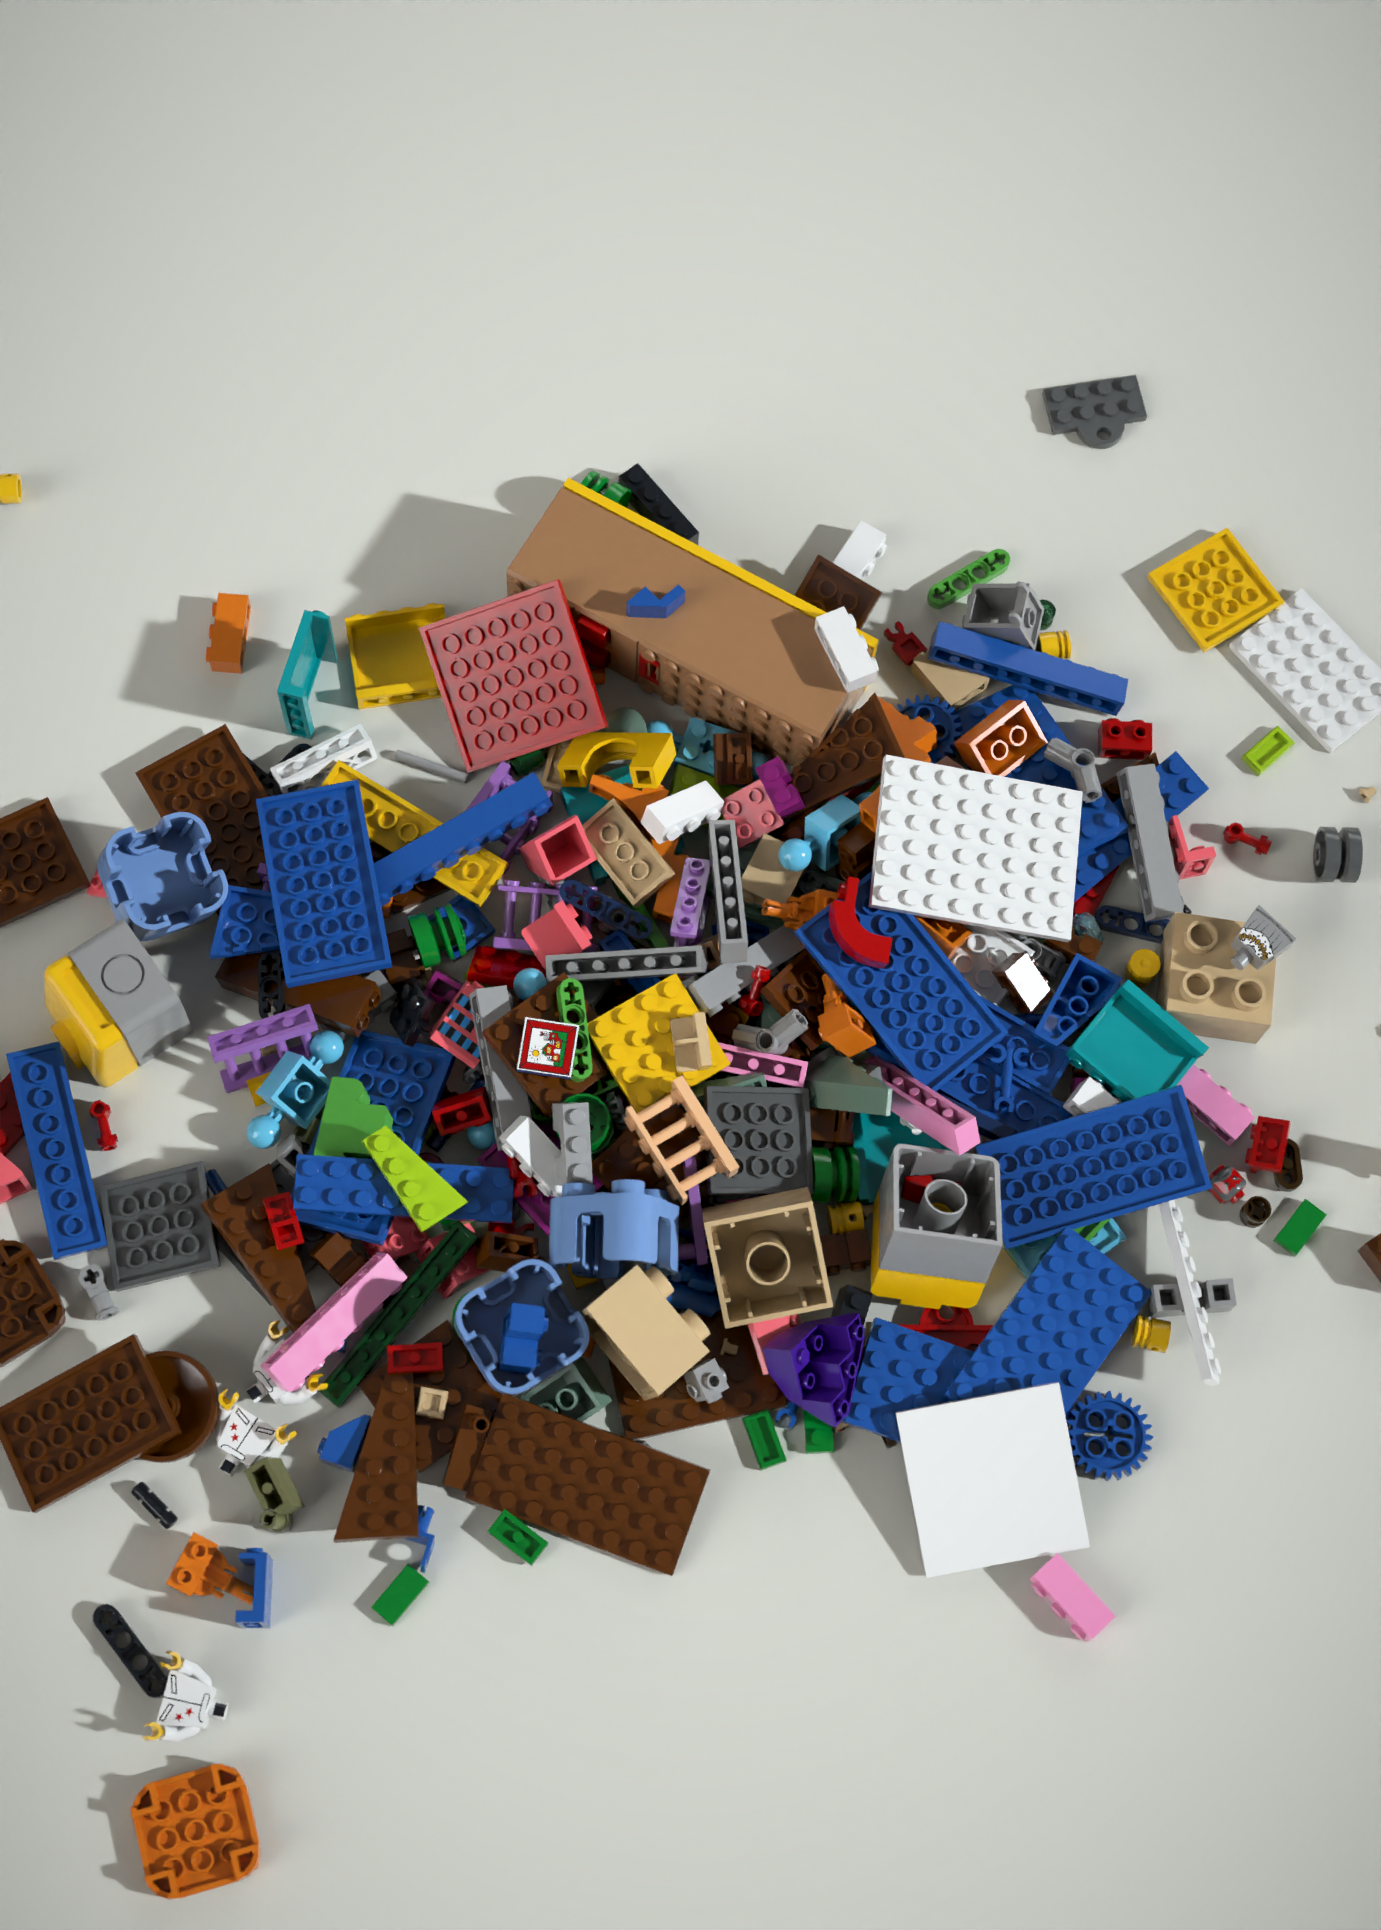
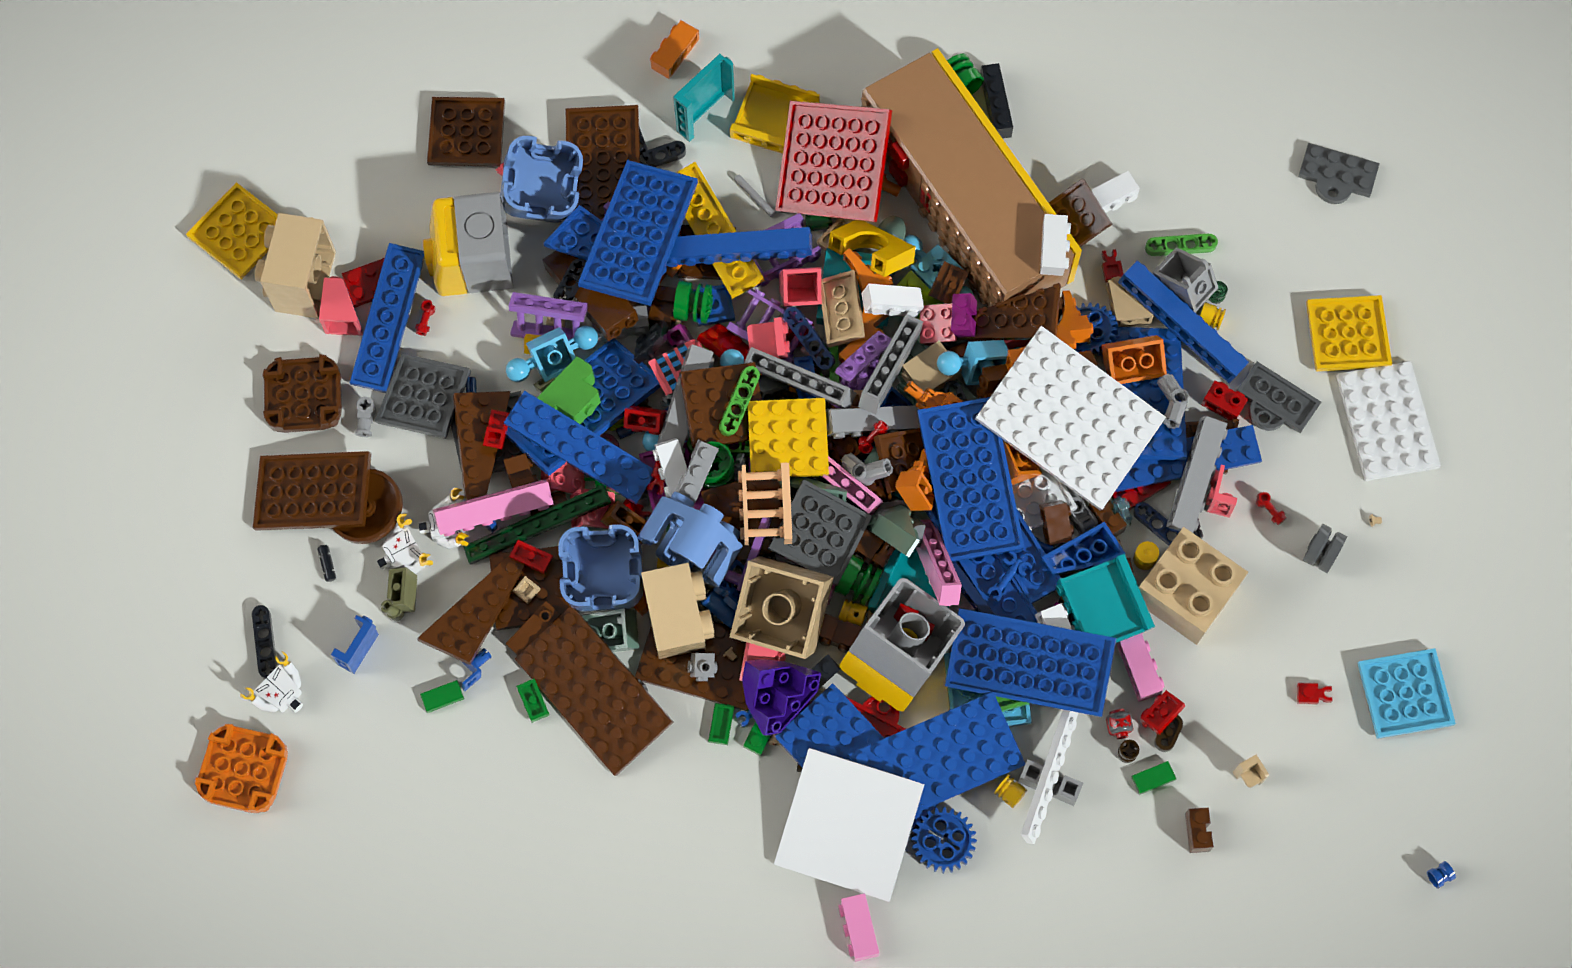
camera: 35 degrees right, 0 degrees up
(203, 1569) = (331, 616): orange brick -> none
(288, 1150) = (530, 387): light grey brick -> none
(323, 758) = (686, 155): white fence -> none
(345, 1444) = (458, 585): blue slope -> none
(416, 1184) = (587, 446): lime wing -> none
(520, 1335) = (599, 571): blue brick -> none
(548, 1048) = (714, 403): tile -> none
(647, 605) = (939, 154): blue slope -> none
(691, 1043) = (808, 447): tan panel -> none
(850, 935) = (952, 436): red arch -> none
(1181, 708) = (1277, 400): none -> dark grey plate
(1260, 941) = (1225, 572): light grey torso -> none
(1268, 750) = (1321, 457): lime tile -> none

